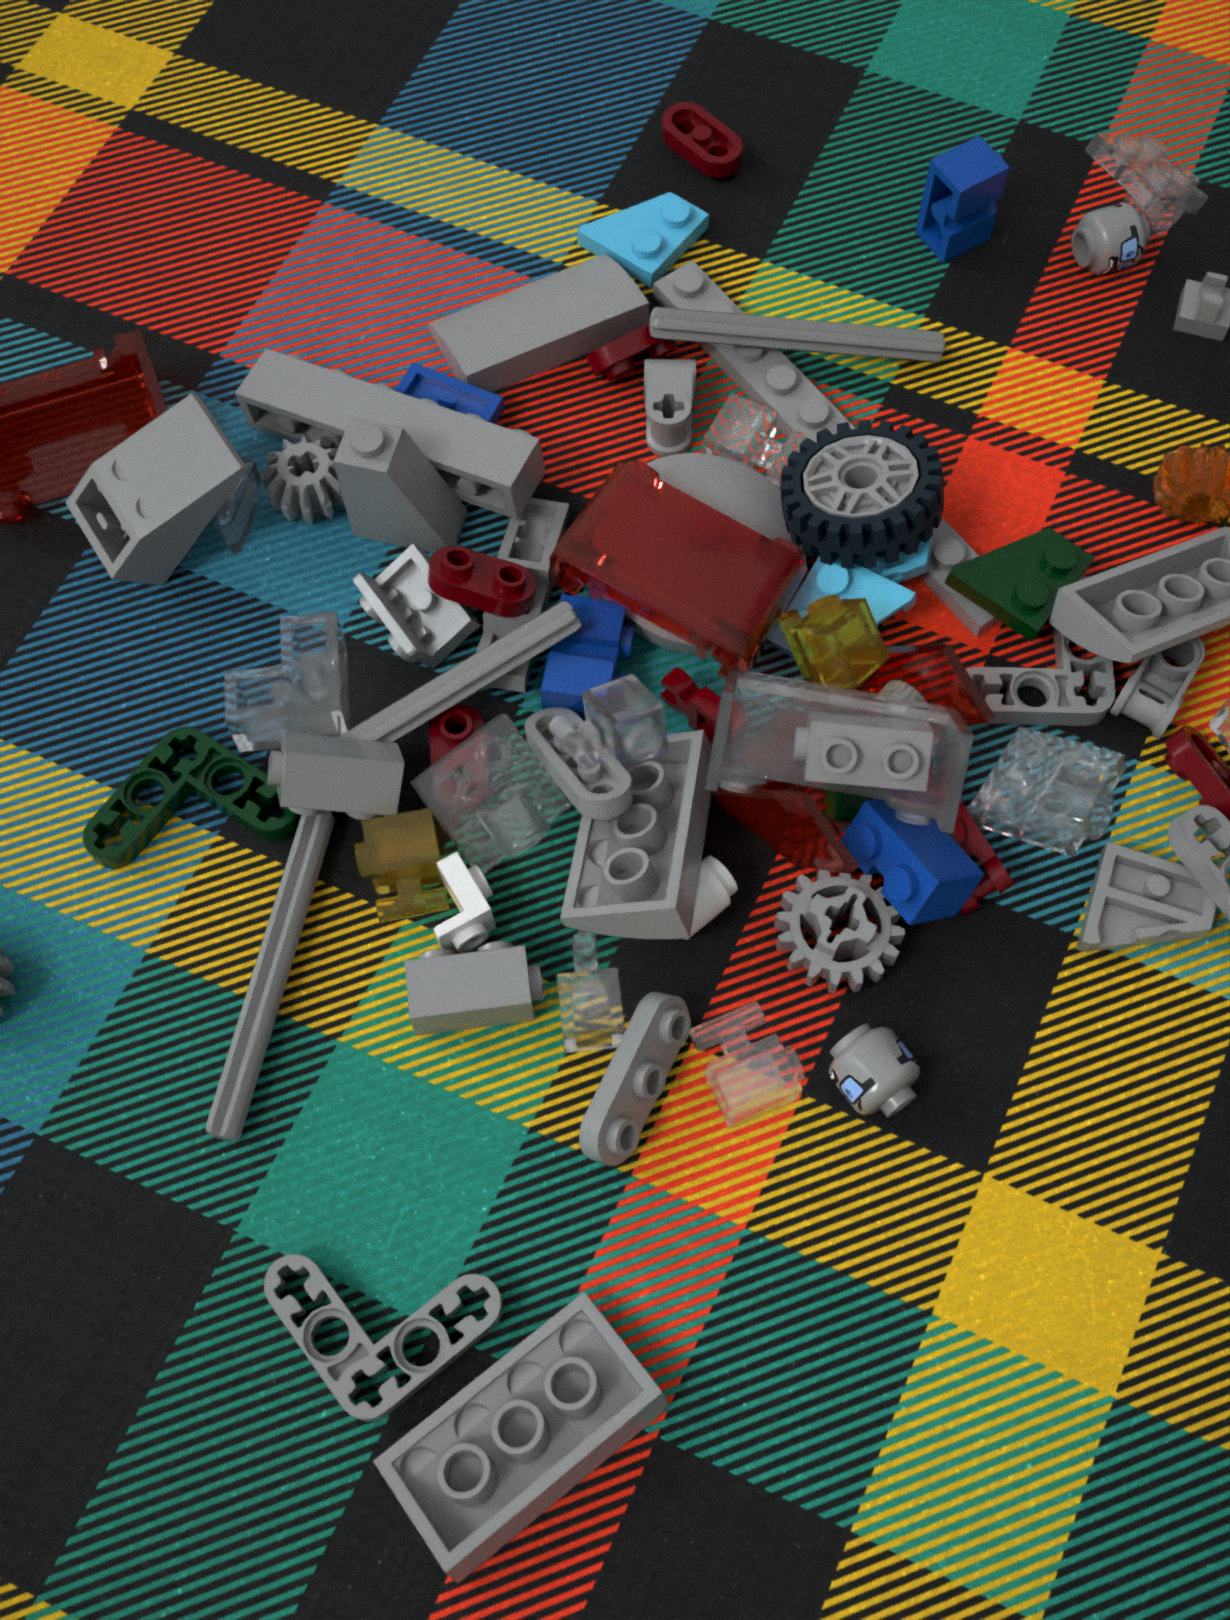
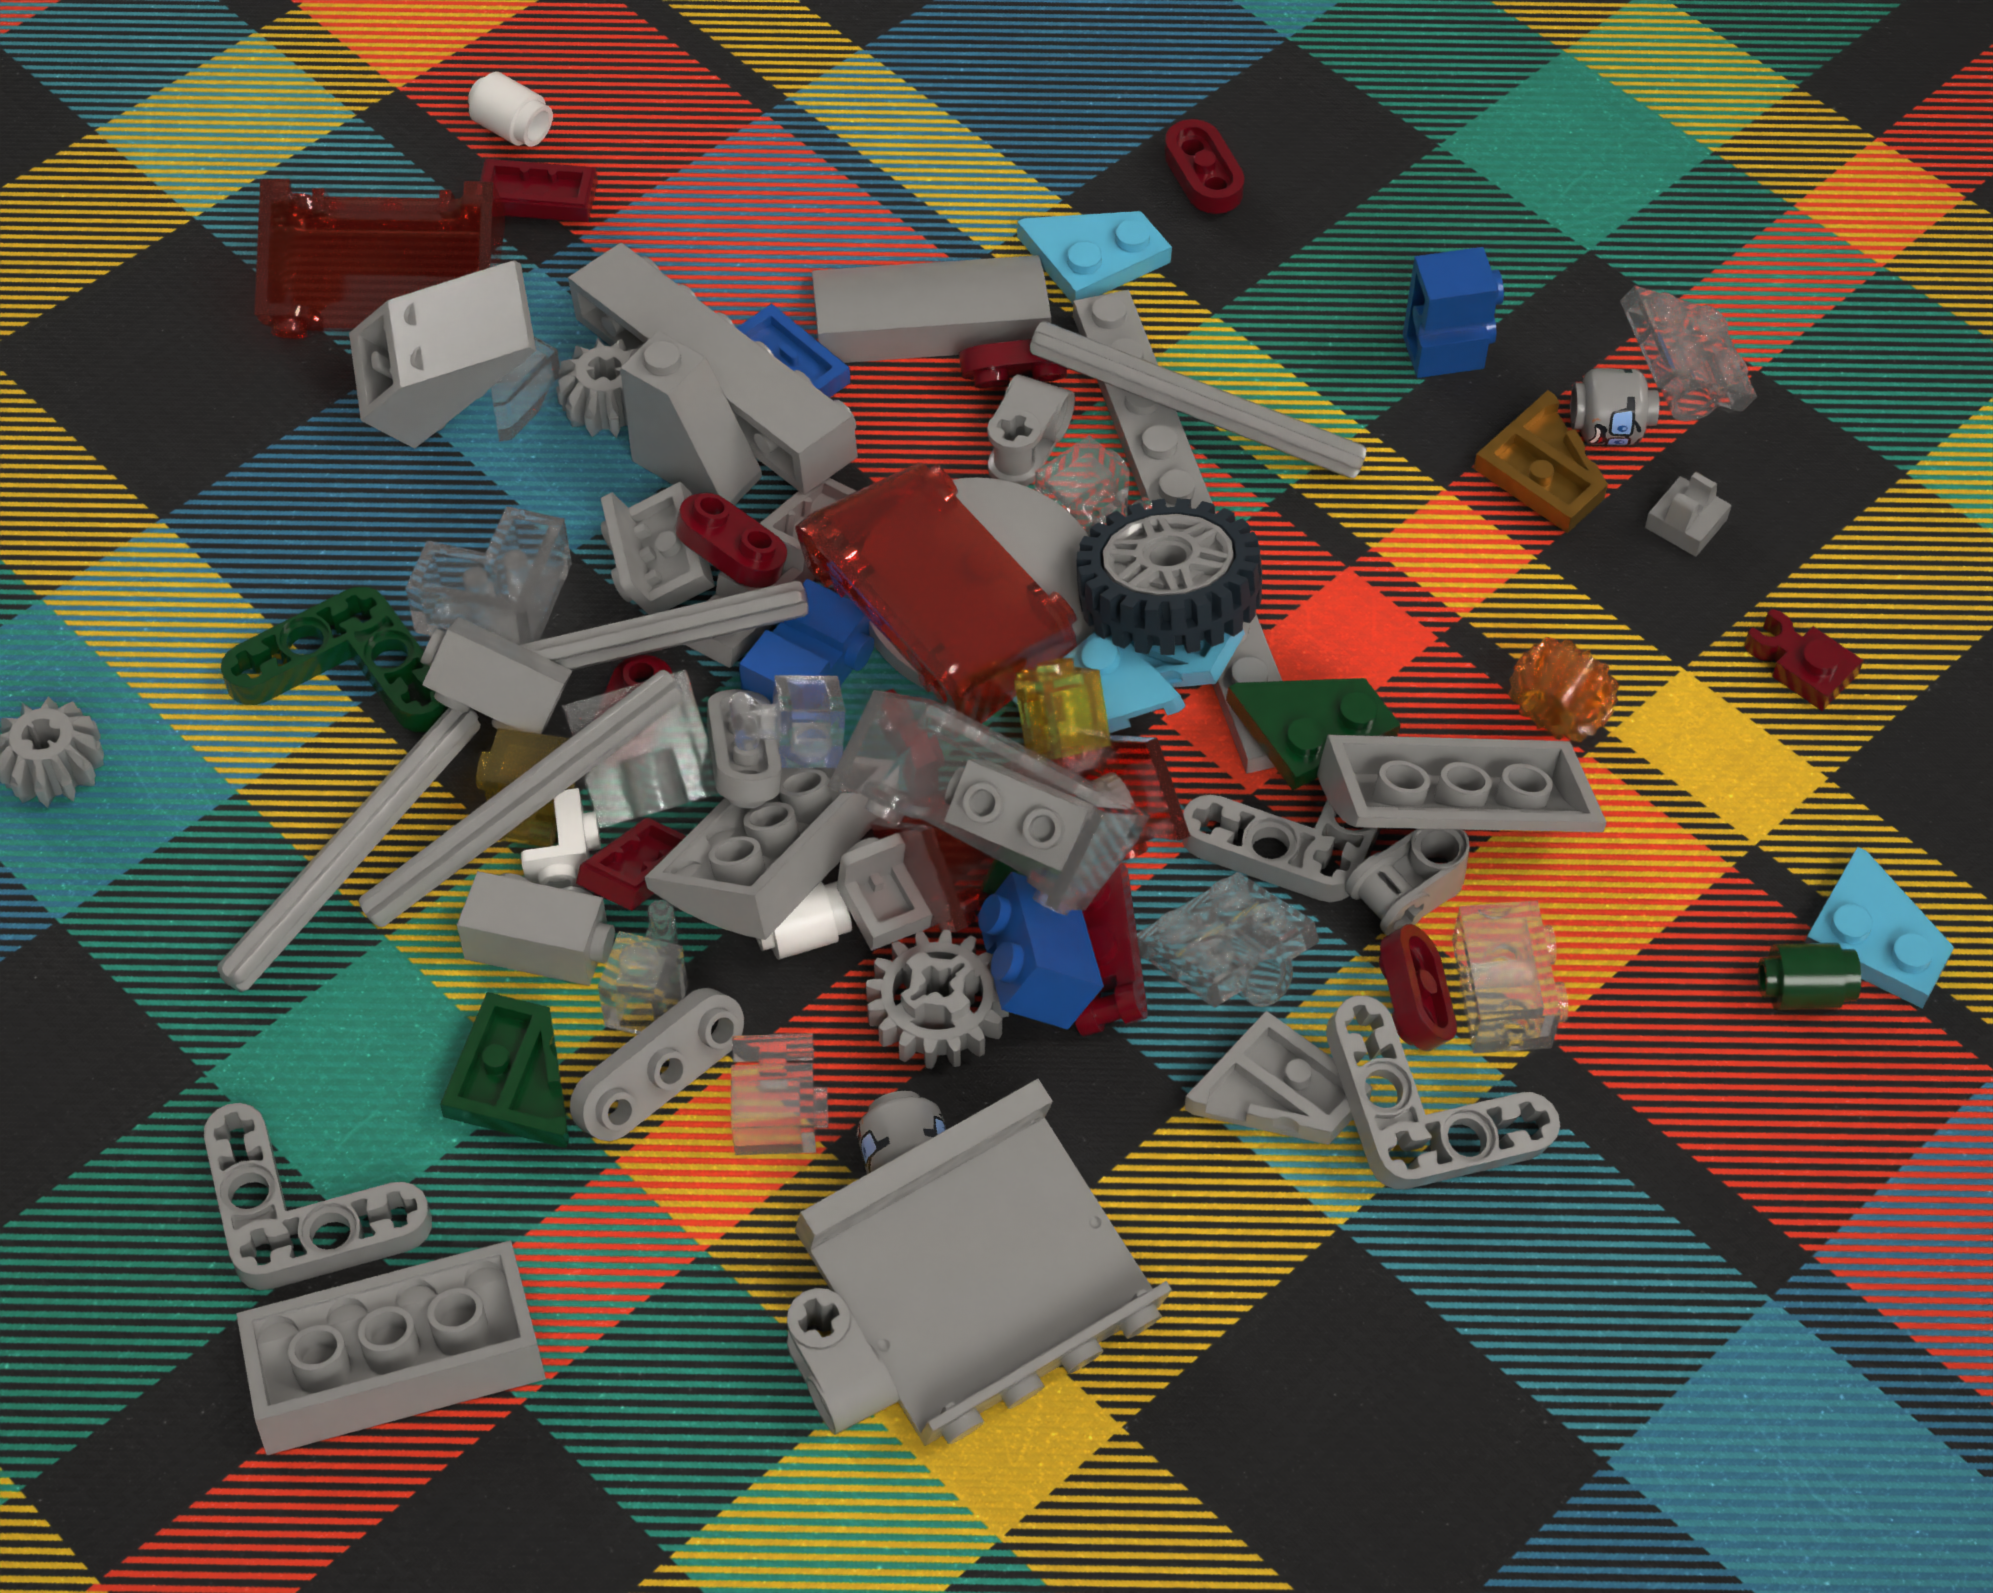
camera: 20 degrees right, 10 degrees down
(112, 262) = (509, 109): none -> white brick
(172, 322) = (543, 189): none -> dark red plate
(413, 880) = (521, 798): none -> light grey axle
(511, 1132) = (510, 1073): none -> dark green wing
(533, 900) = (621, 866): none -> dark red plate
(760, 856) = (881, 891): none -> light grey bracket
(925, 1303) = (841, 1369): none -> light grey piece
(998, 1169) = (979, 1265): none -> light grey panel
(1083, 304) = (1544, 465): none -> pearl gold wing

